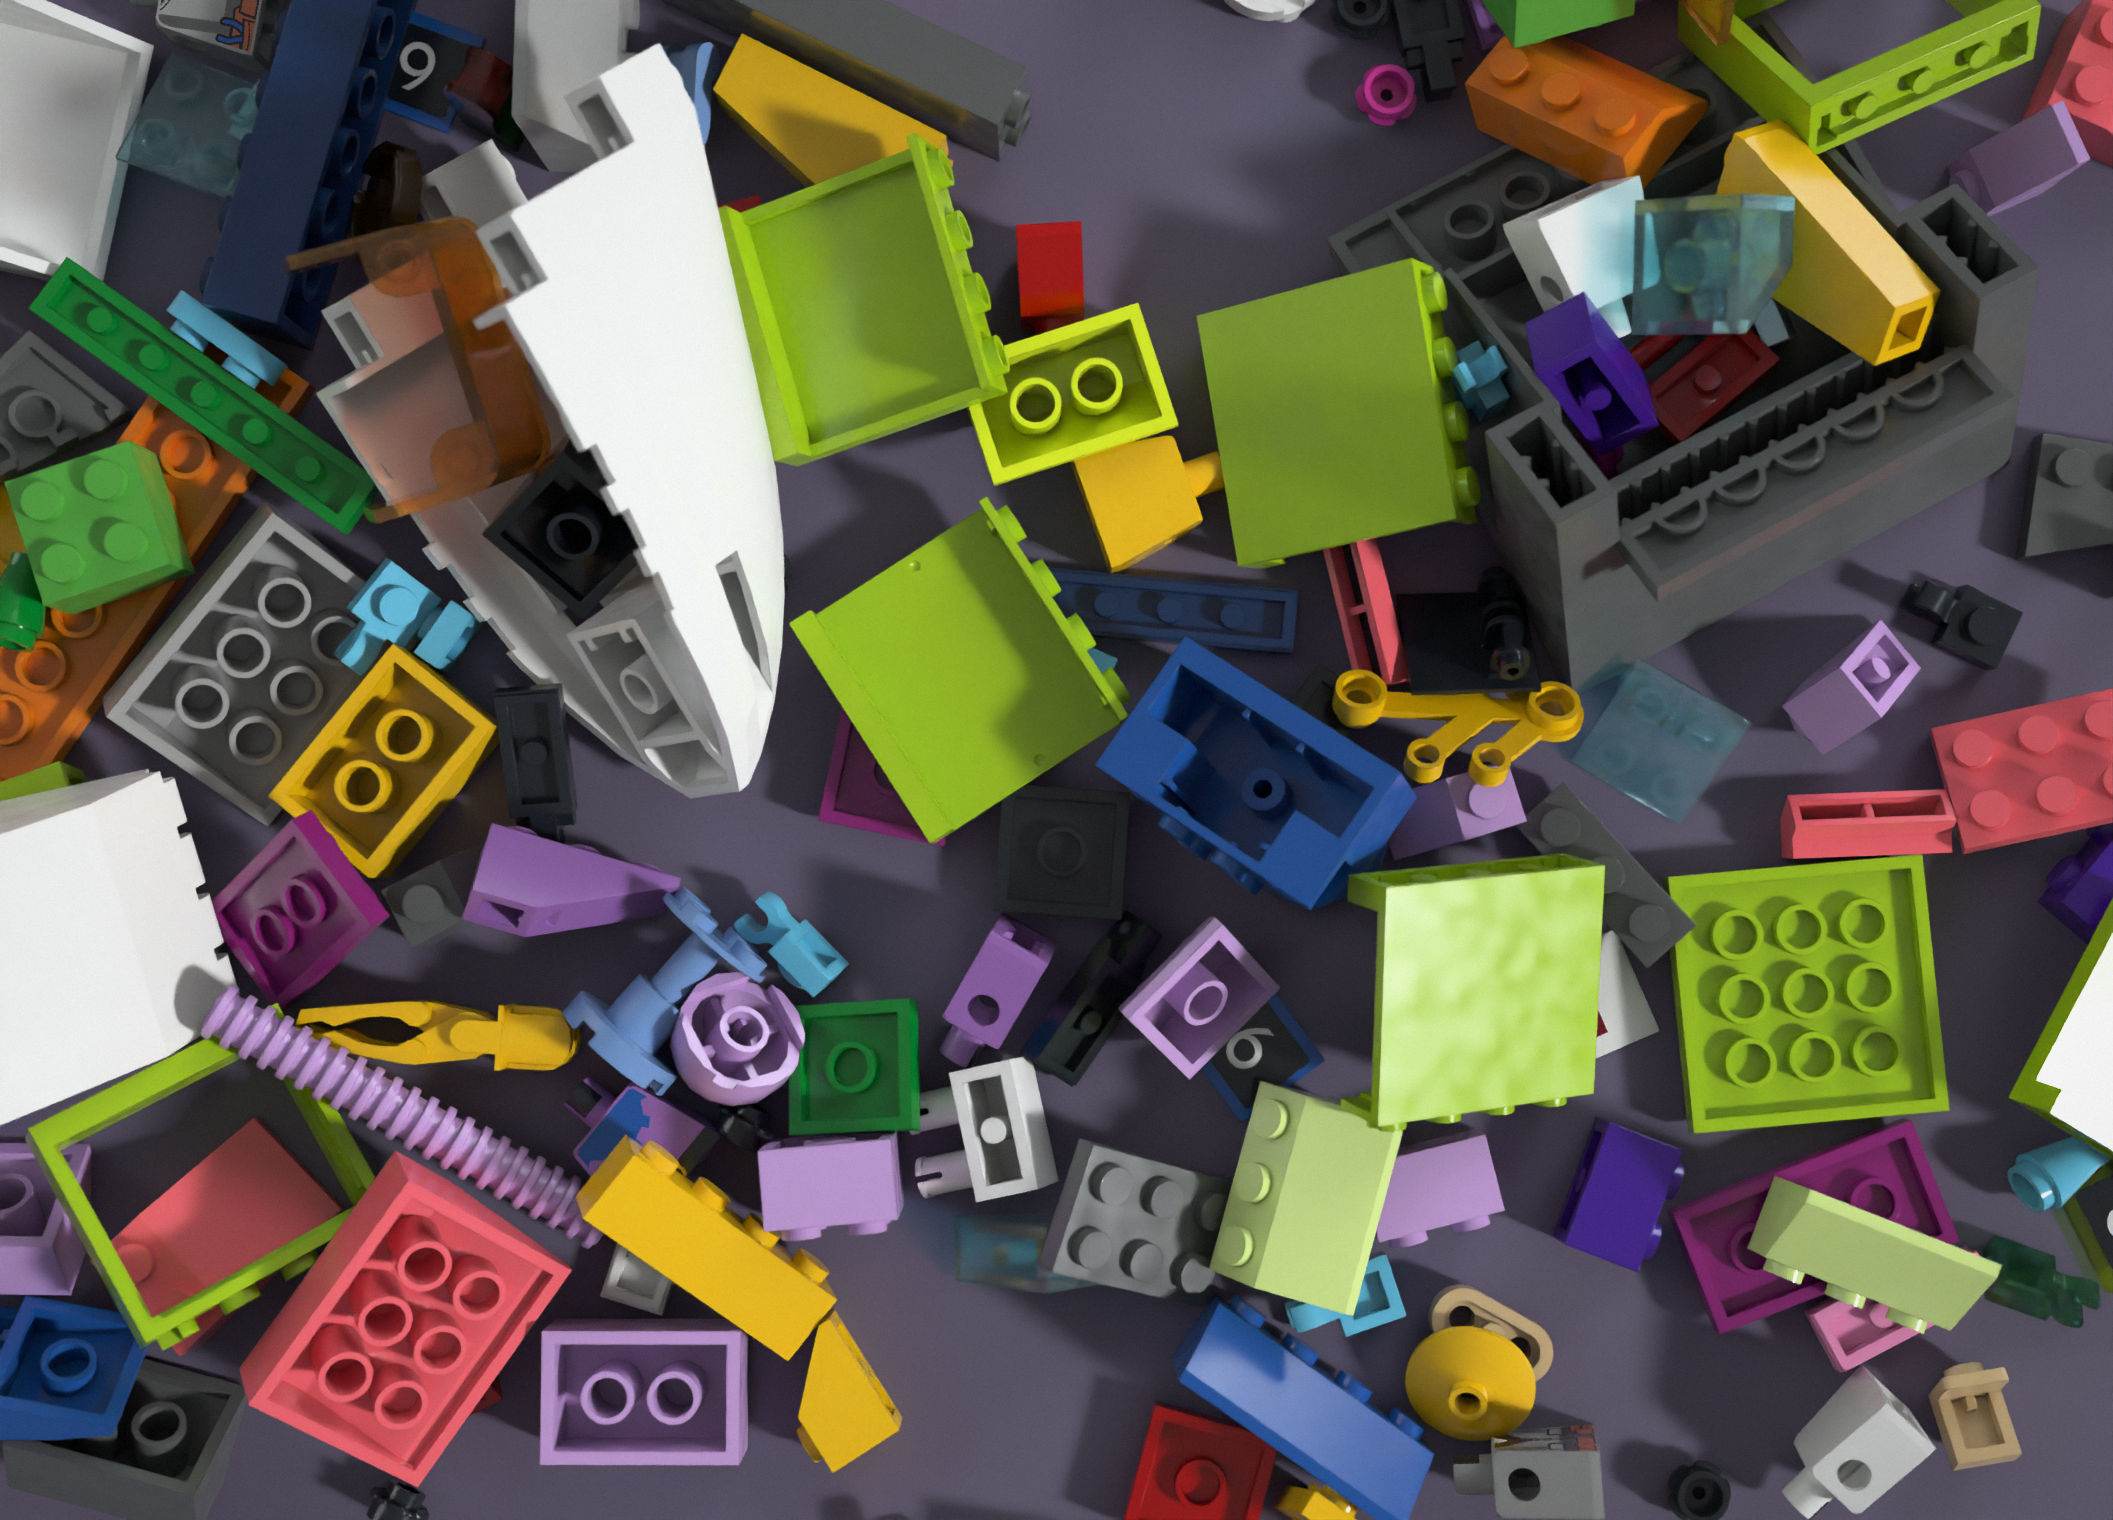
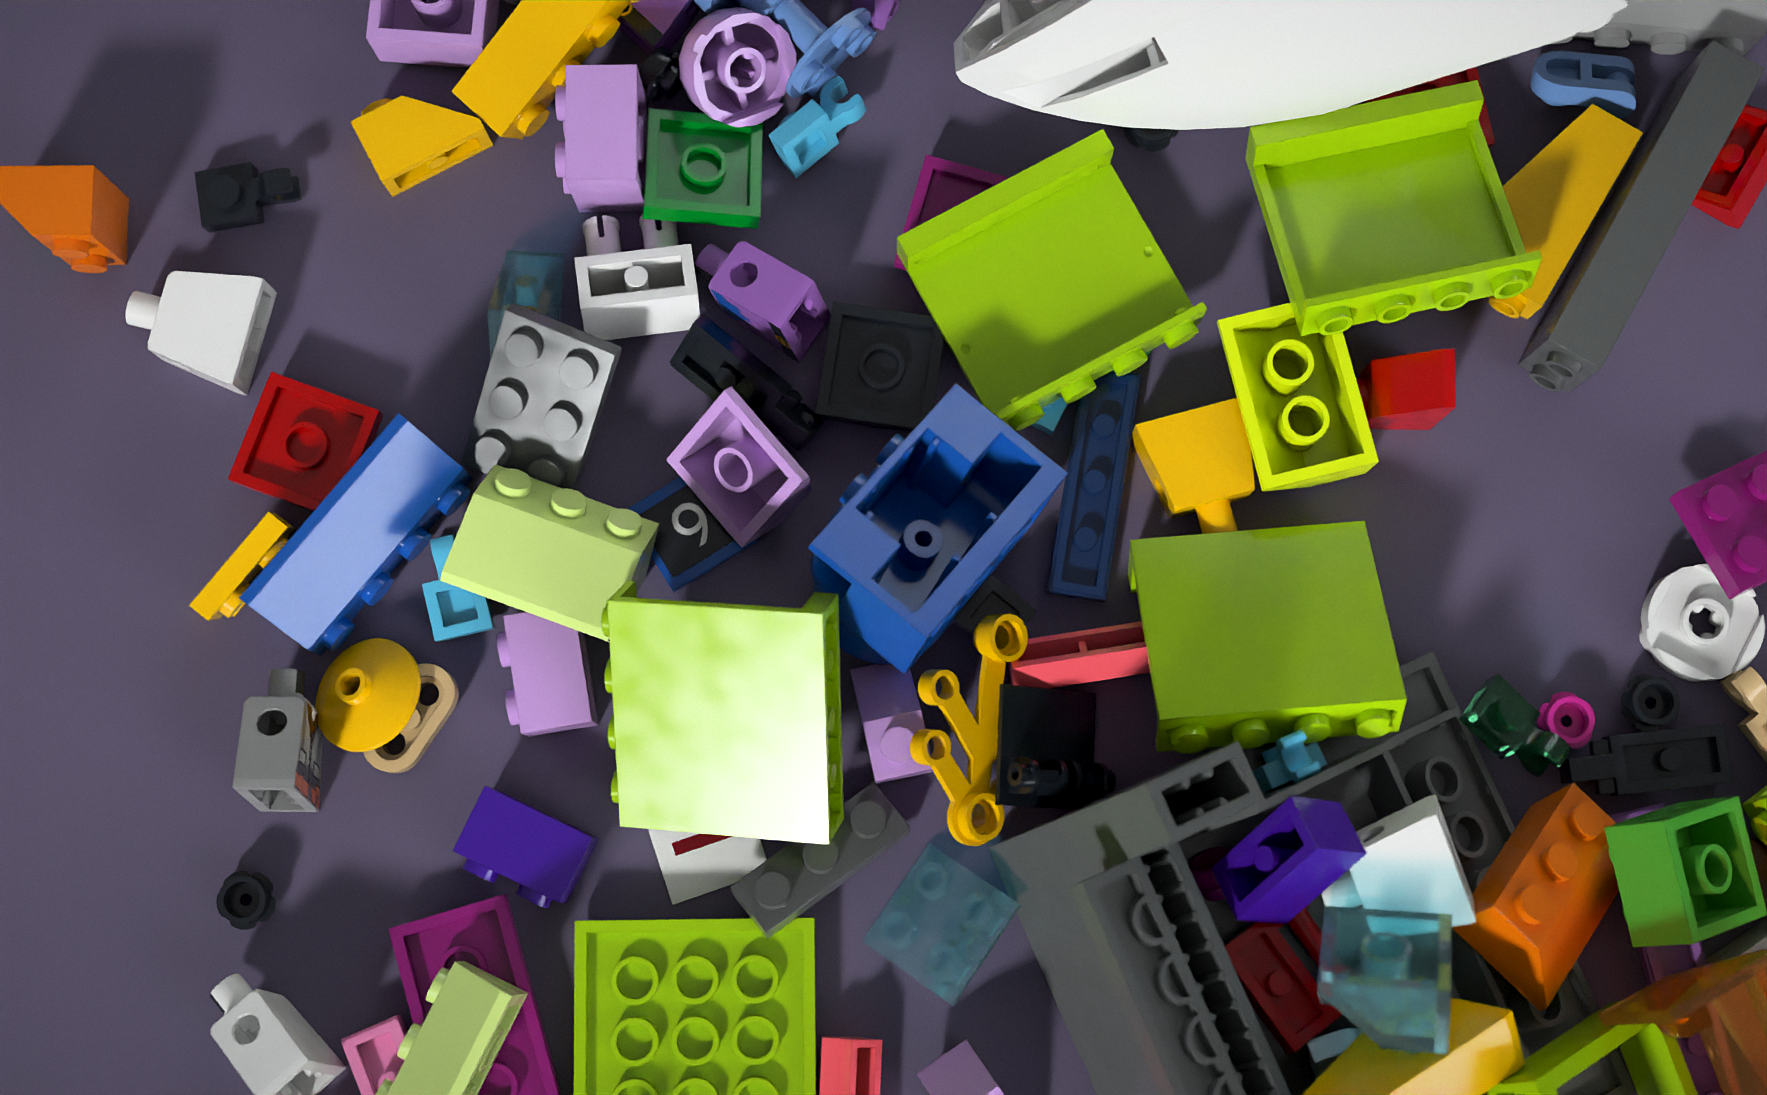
camera: 100 degrees right, 5 degrees down
(1399, 158) = (1507, 727): none -> clear green plate

